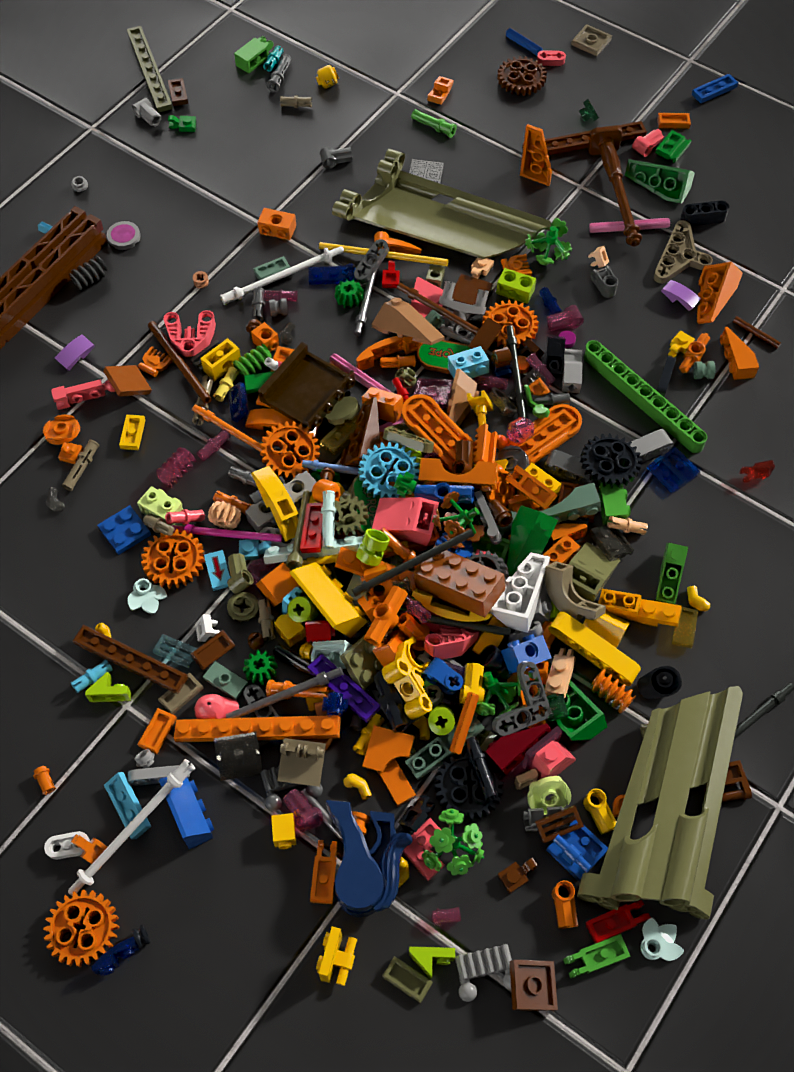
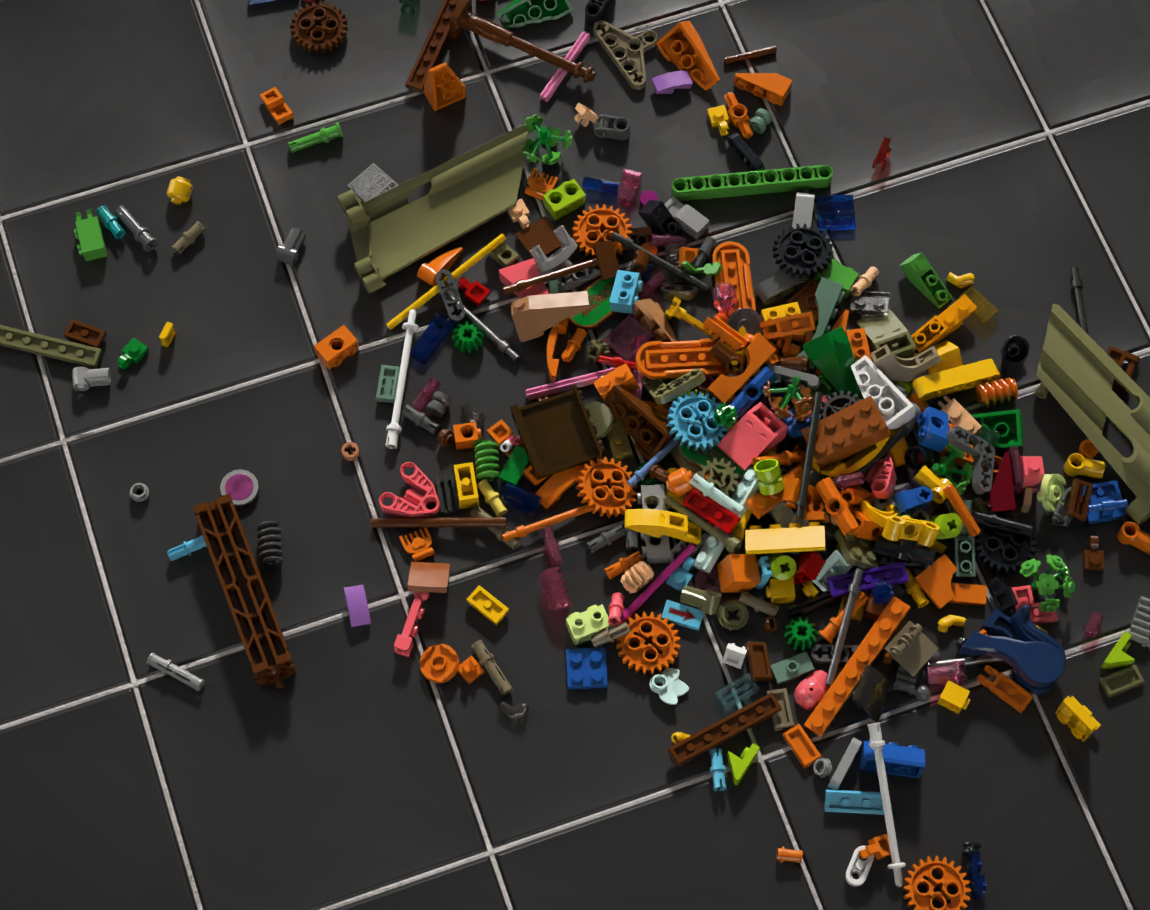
camera: 55 degrees left, 5 degrees up
(211, 130) = (167, 334): none -> yellow tile

